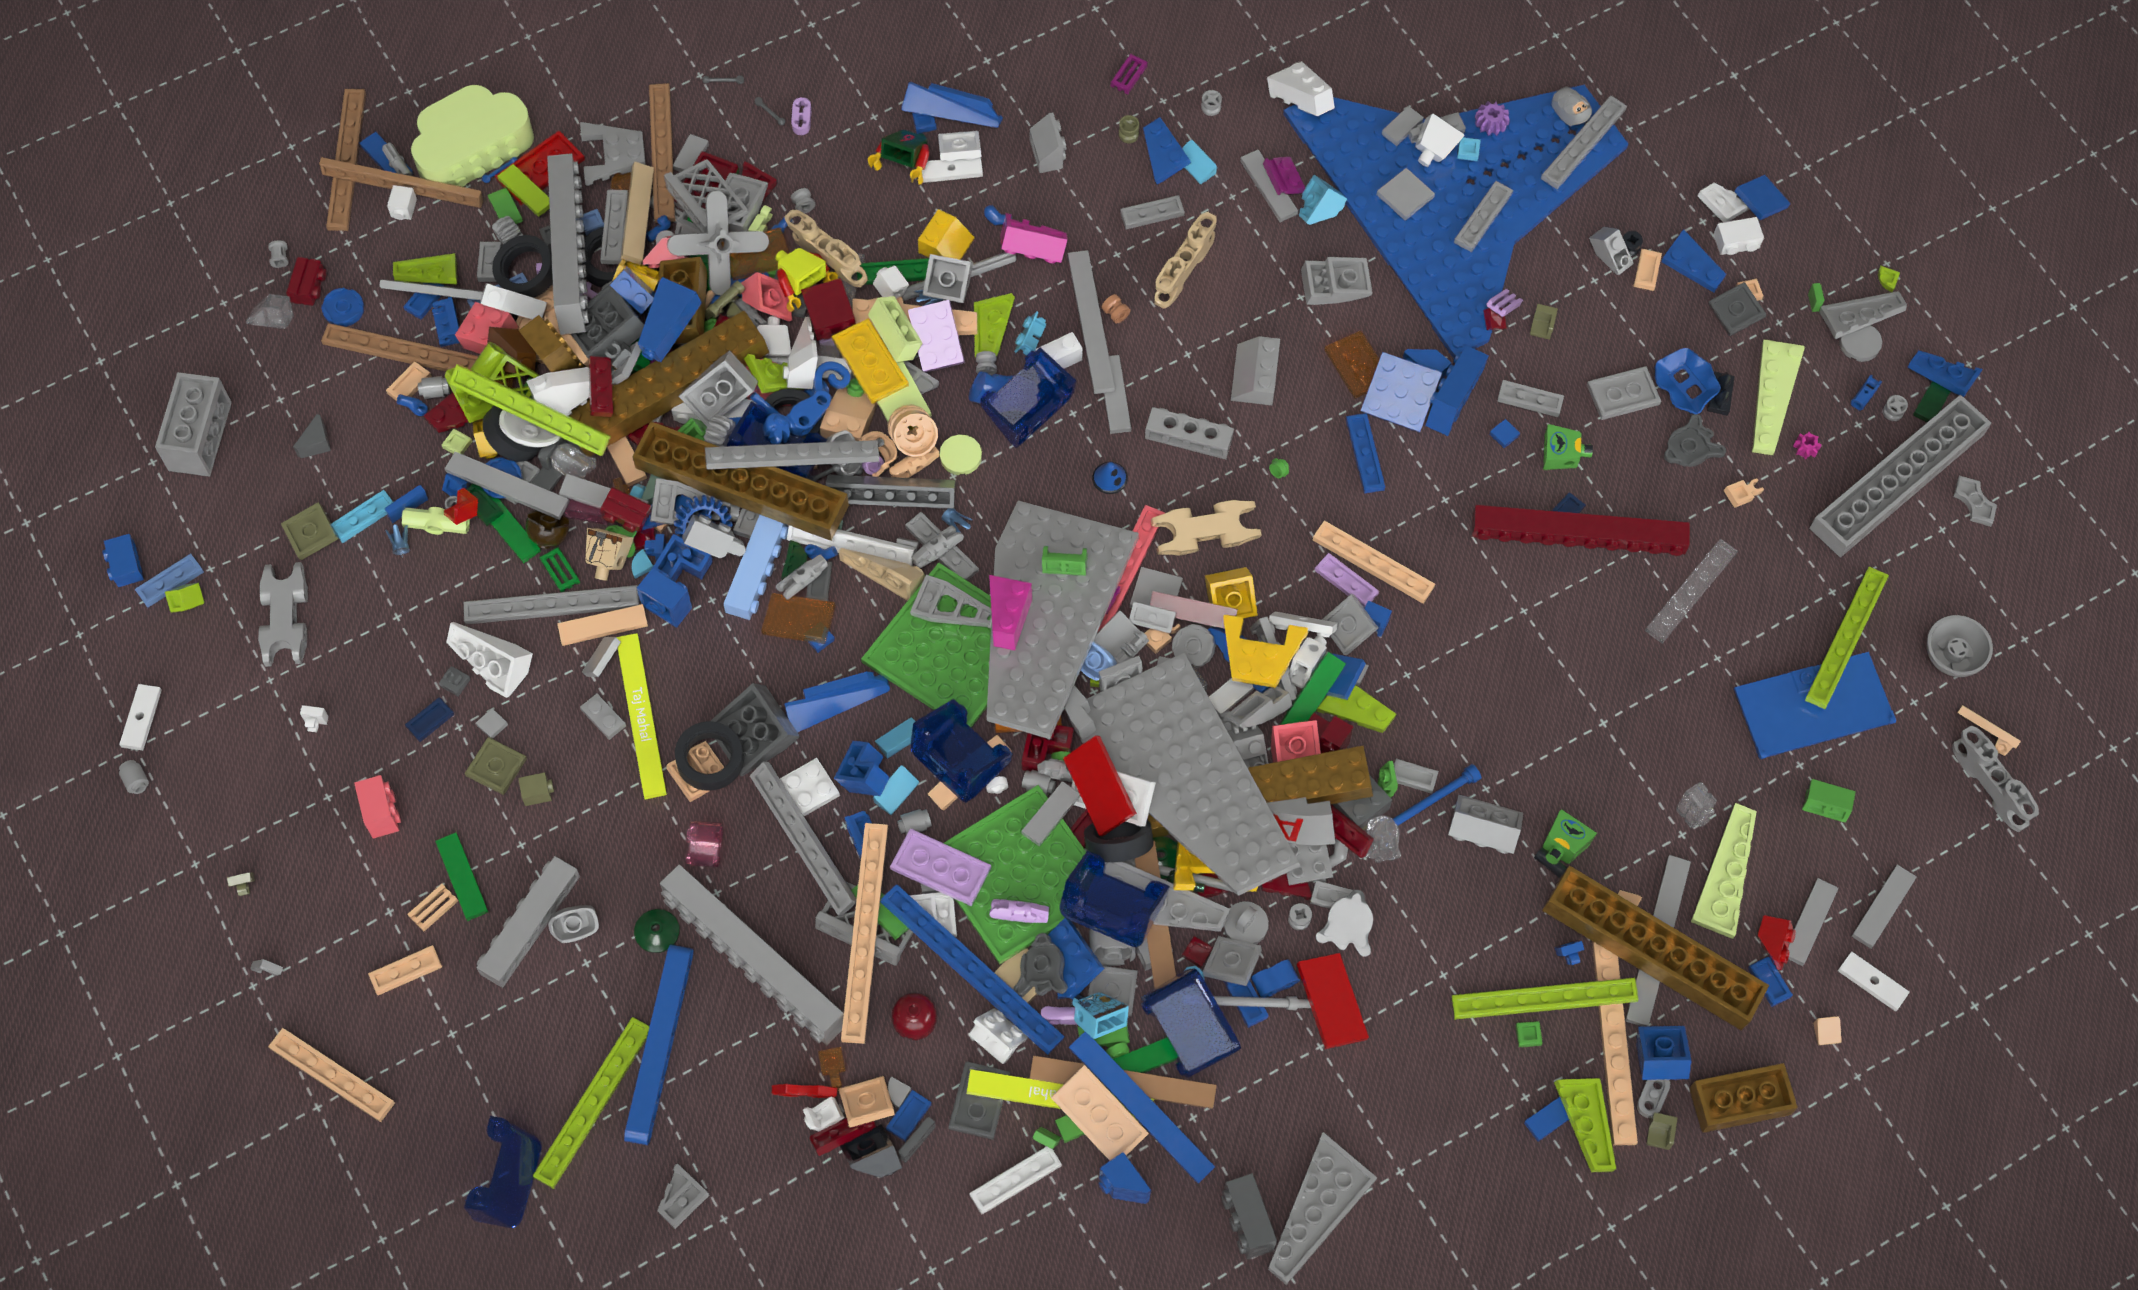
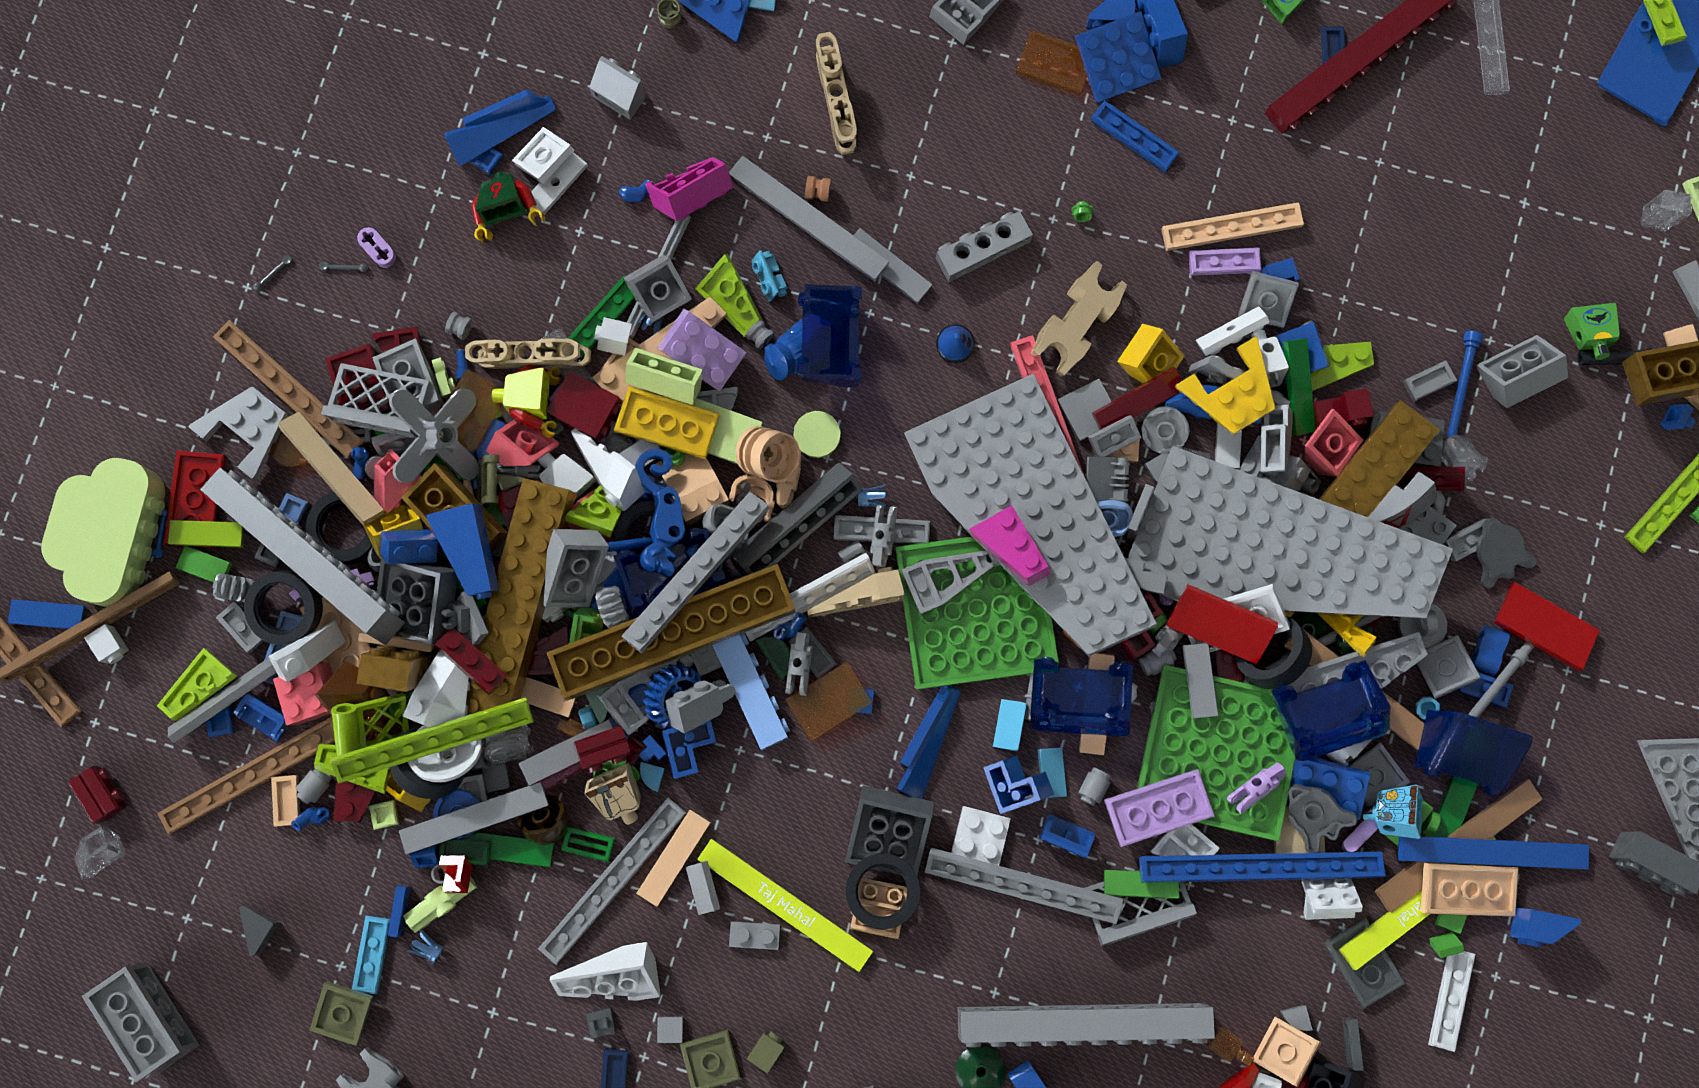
camera: 45 degrees left, 15 degrees up
(278, 254) = (44, 791): light grey bush -> none
(343, 307) = (154, 786): blue tile -> none
(395, 160) = (61, 611): light grey axle -> none
(614, 226) = (323, 498): light grey tile -> none
(664, 597) = (706, 790): blue brick -> none
(690, 152) = (315, 368): light grey tile -> none
(705, 843) = (953, 968): clear pink brick -> none
(864, 934) = (1158, 921): light nougat plate -> none
(908, 1115) = (1324, 1027): blue tile -> none
(914, 1016) = (1250, 945): dark red cylinder -> none
(945, 237) = (615, 252): yellow slope -> none
(1064, 350) = (812, 268): white brick -> none
(1064, 563) = (1008, 456): bright green hinge -> none
(1152, 212) = (760, 72): light grey tile -> none
(1197, 952) = (1408, 683): dark red tile -> none
(1255, 370) = (983, 141): light grey slope -> none
(1302, 920) = (1453, 583): light grey wheel -> none
(1387, 779) = (1425, 404): bright green slope -> none
(1504, 433) = (1226, 20): blue tile -> none

